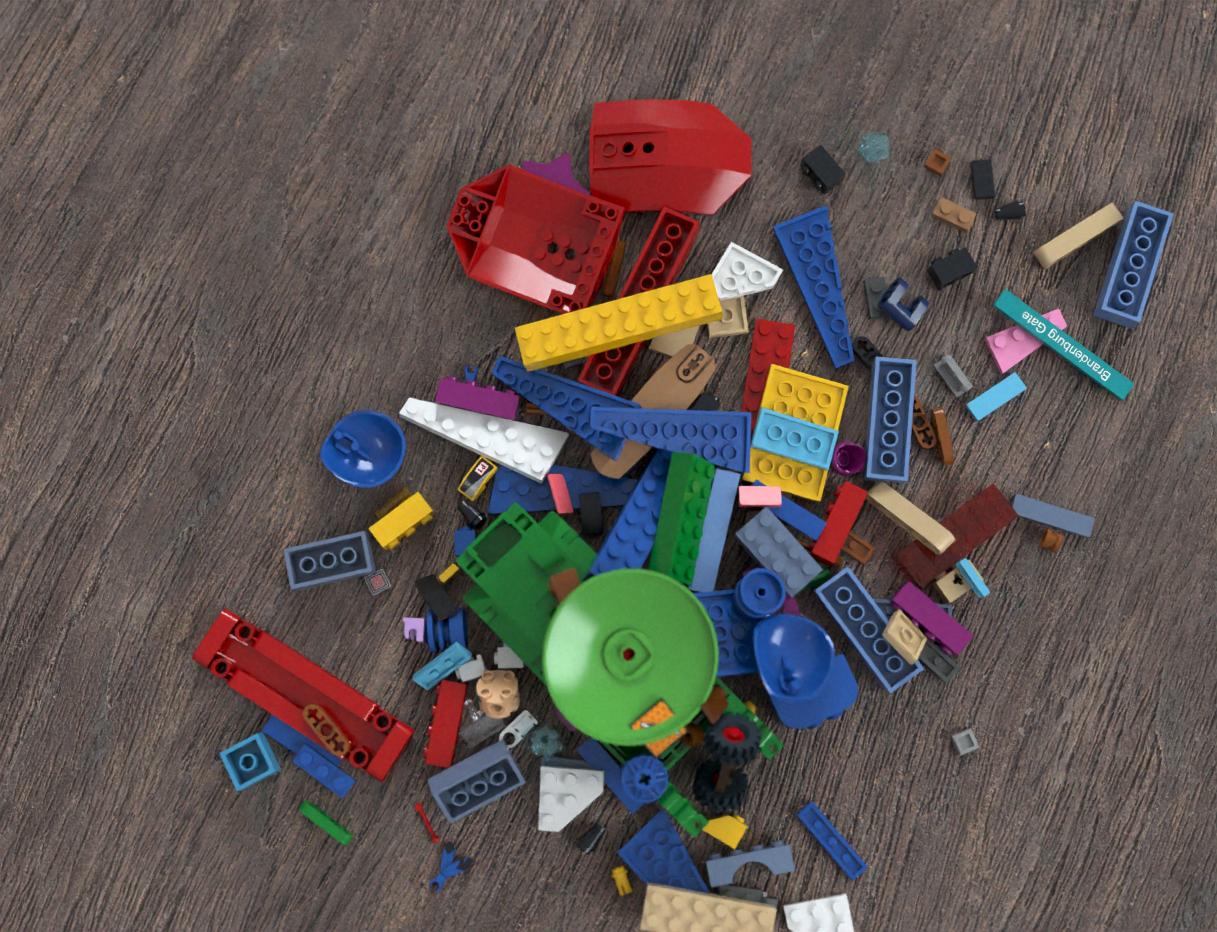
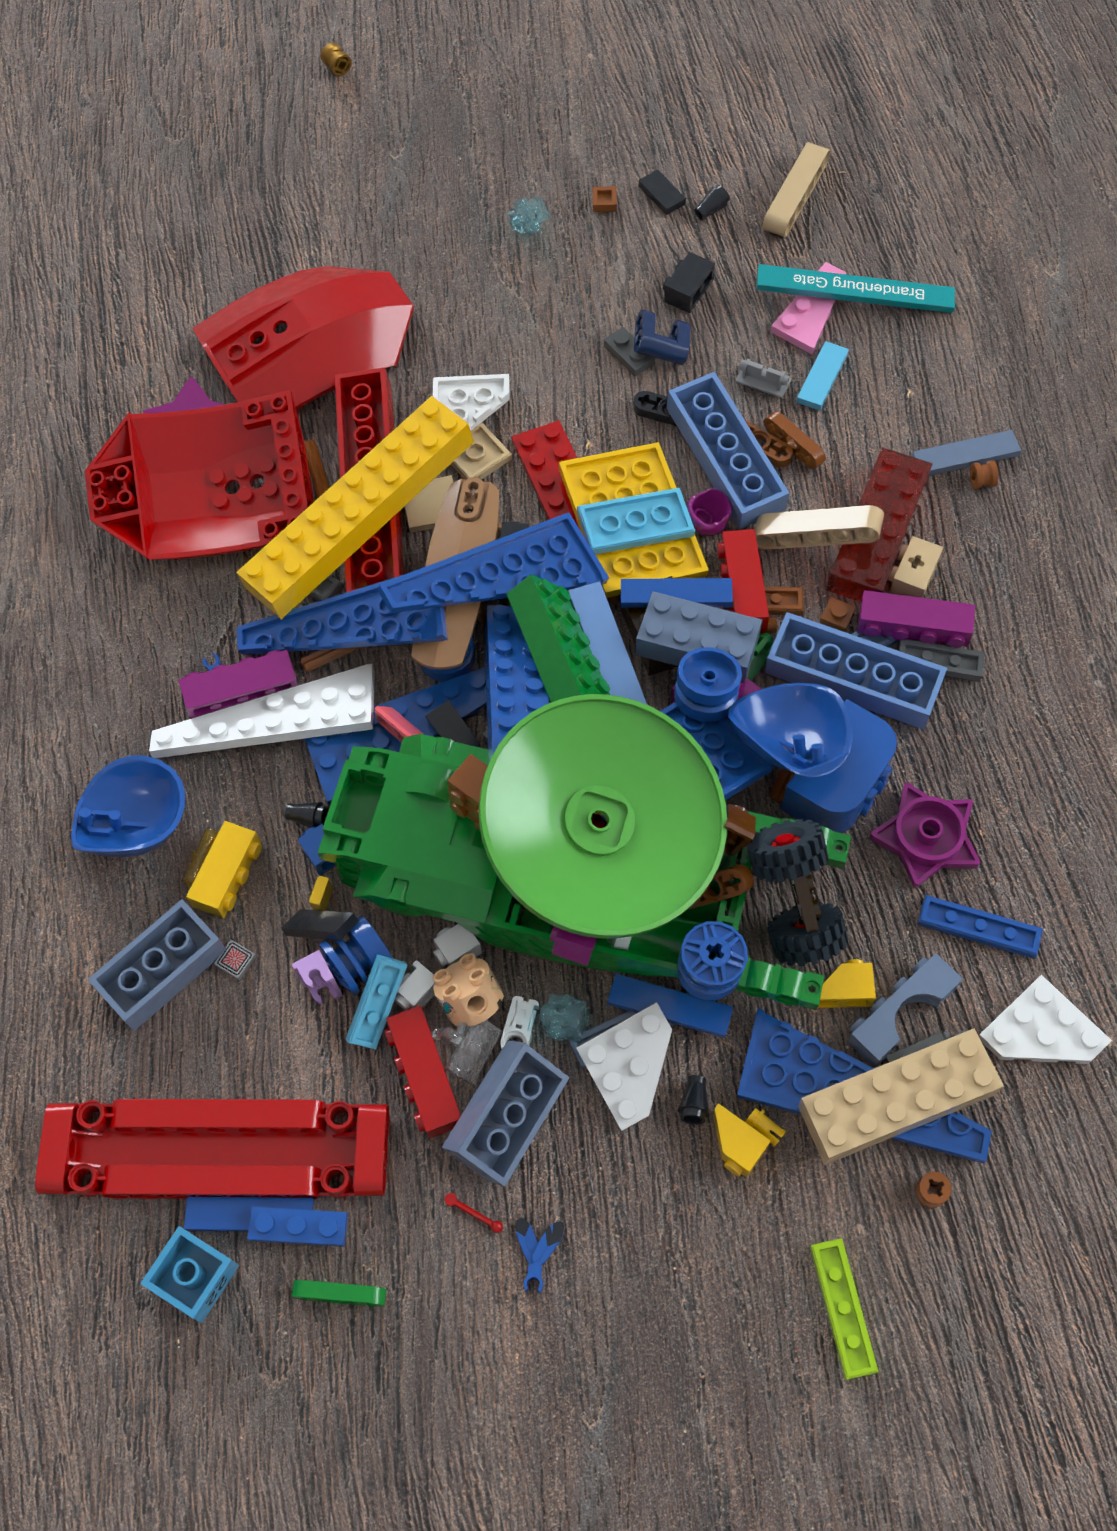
camera: 30 degrees left, 15 degrees down
(332, 745) = (252, 1151): dark orange beam -> none
(476, 478) = (289, 771): slope -> none
(599, 881) = (738, 1142): none -> yellow slope
(653, 715) = (675, 874): tile -> none
(760, 496) = (637, 591): slope -> none
(812, 260) = (535, 352): blue wing -> none
(822, 169) = (487, 263): black brick -> none
(855, 767) = (925, 854): none -> magenta plate
(885, 580) = (837, 614): none -> dark orange plate
(904, 637) = (902, 646): tan tile -> none
(953, 214) = (655, 237): medium nougat plate -> none
(964, 741) = (1047, 729): light grey tile -> none
(972, 578) = (930, 547): medium azure tile -> none
(1133, 264) = (871, 183): medium blue brick -> none

